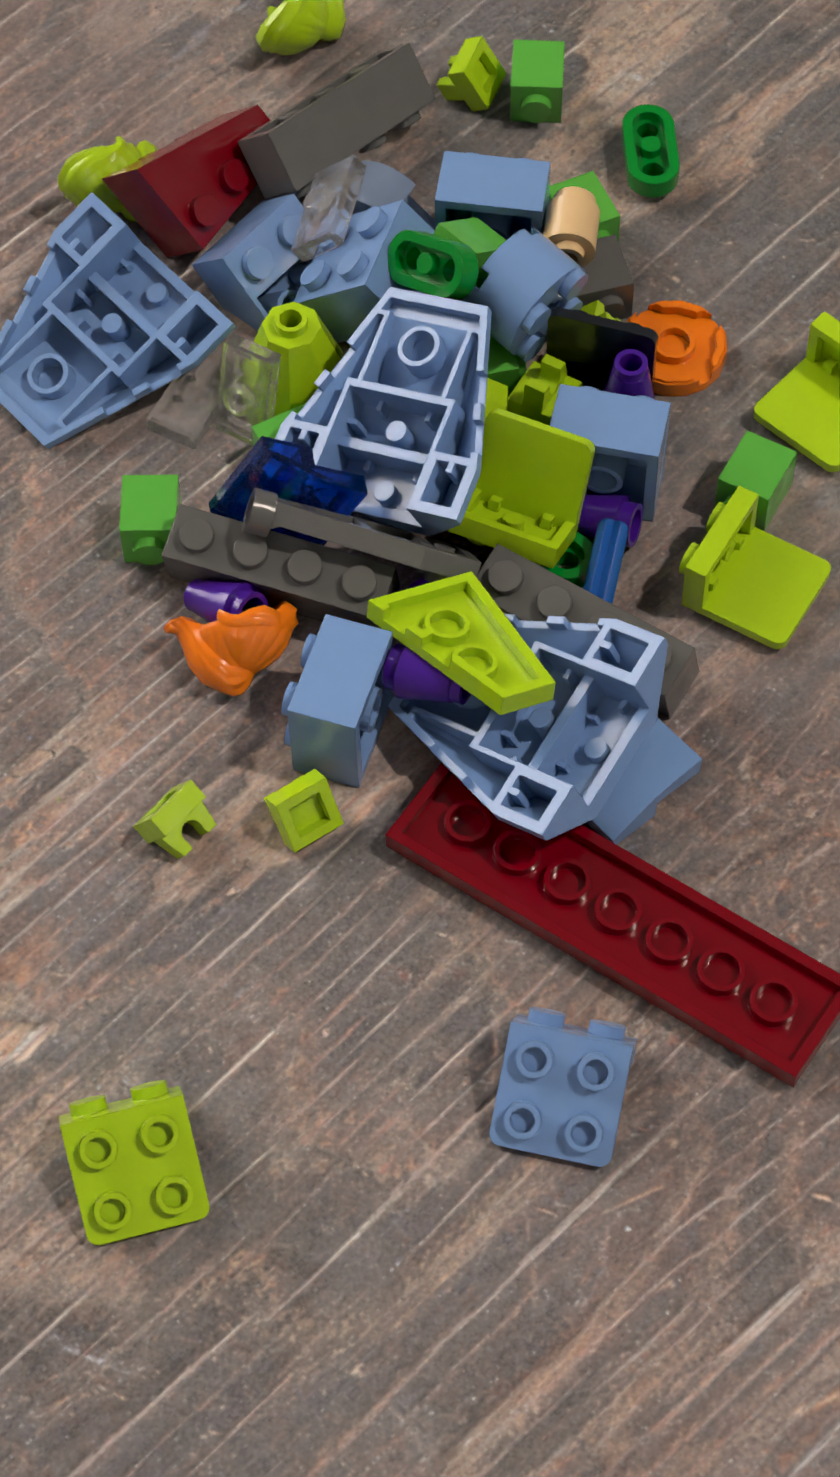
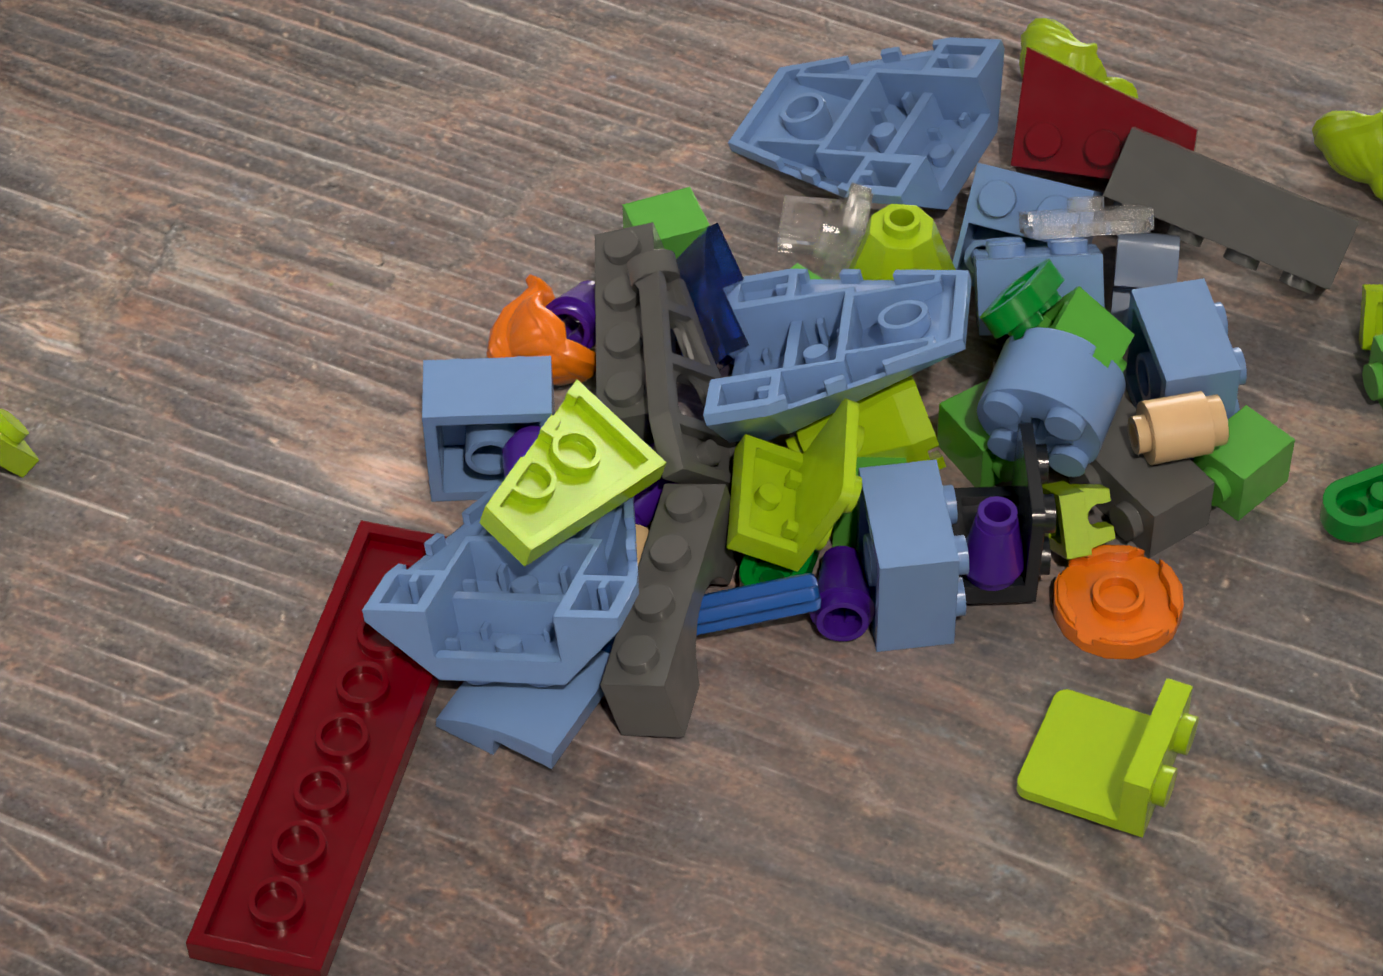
camera: 70 degrees right, 10 degrees down
(166, 818) = (320, 353): lime tile -> none
(304, 810) = (370, 452): lime tile -> none
(538, 389) = (971, 477): lime tile -> none
(562, 1087) = (125, 737): medium blue bracket -> none
(749, 575) = (825, 738): lime bracket -> none
(761, 468) = (952, 713): bright green brick -> none

